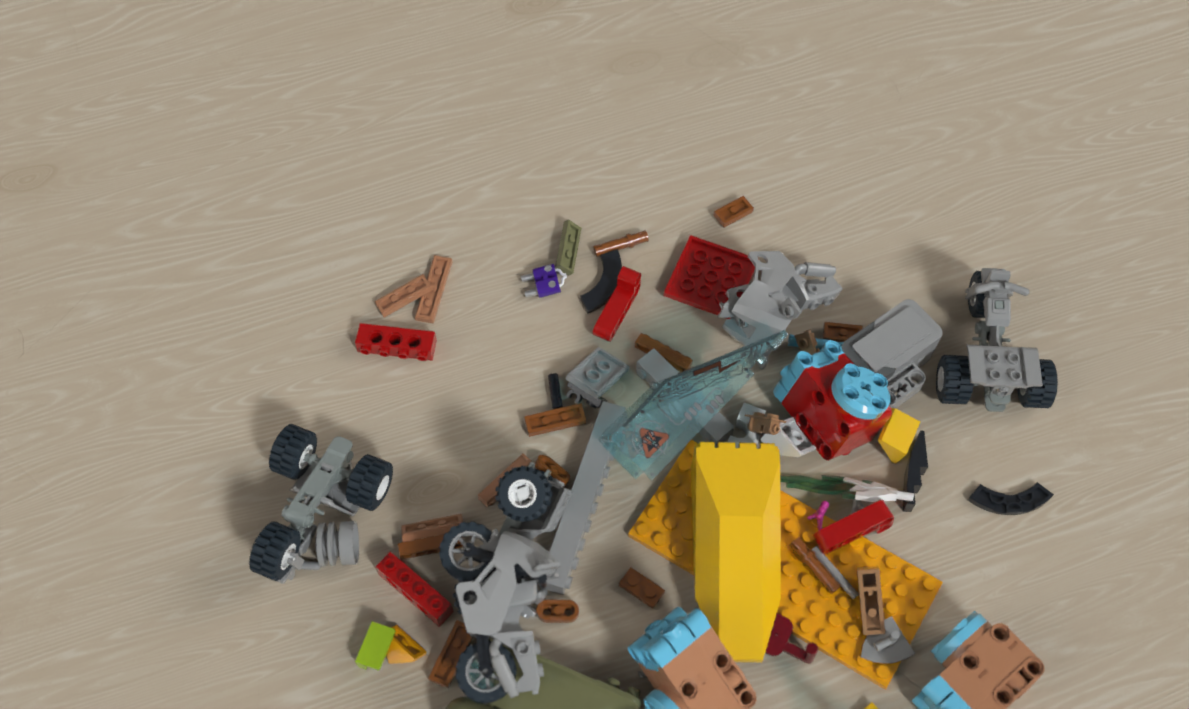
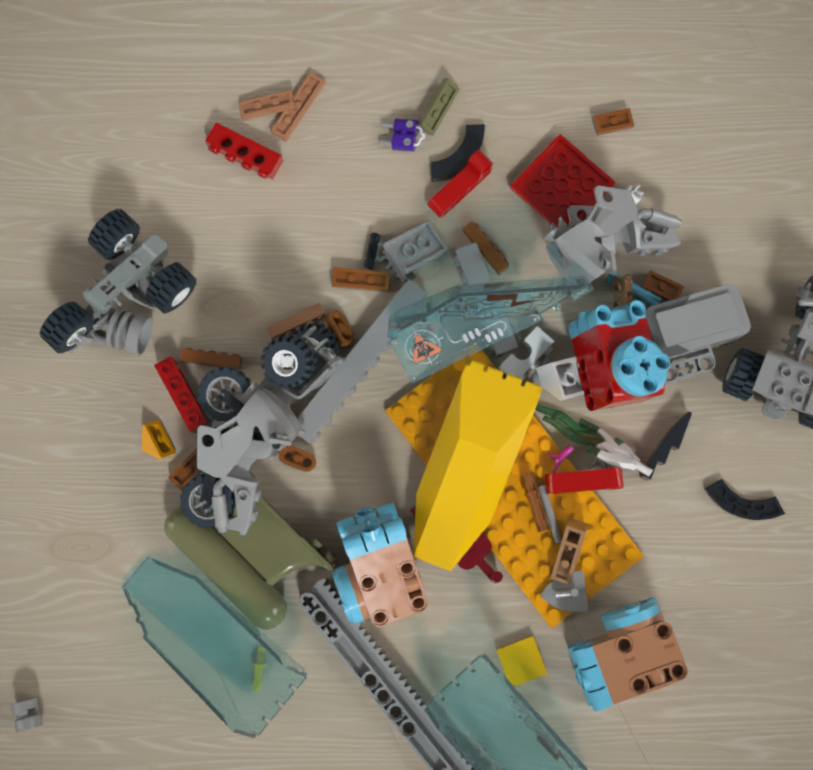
camera: 25 degrees right, 20 degrees up
(375, 646) = (132, 434): lime panel -> none
(430, 527) = (217, 344): nougat tile -> none
(621, 243) = (490, 119): dark orange pin -> none
(641, 588) = (378, 463): dark orange plate -> none
(762, 424) = (541, 355): medium nougat hinge -> none
(898, 435) = (665, 409): yellow slope -> none

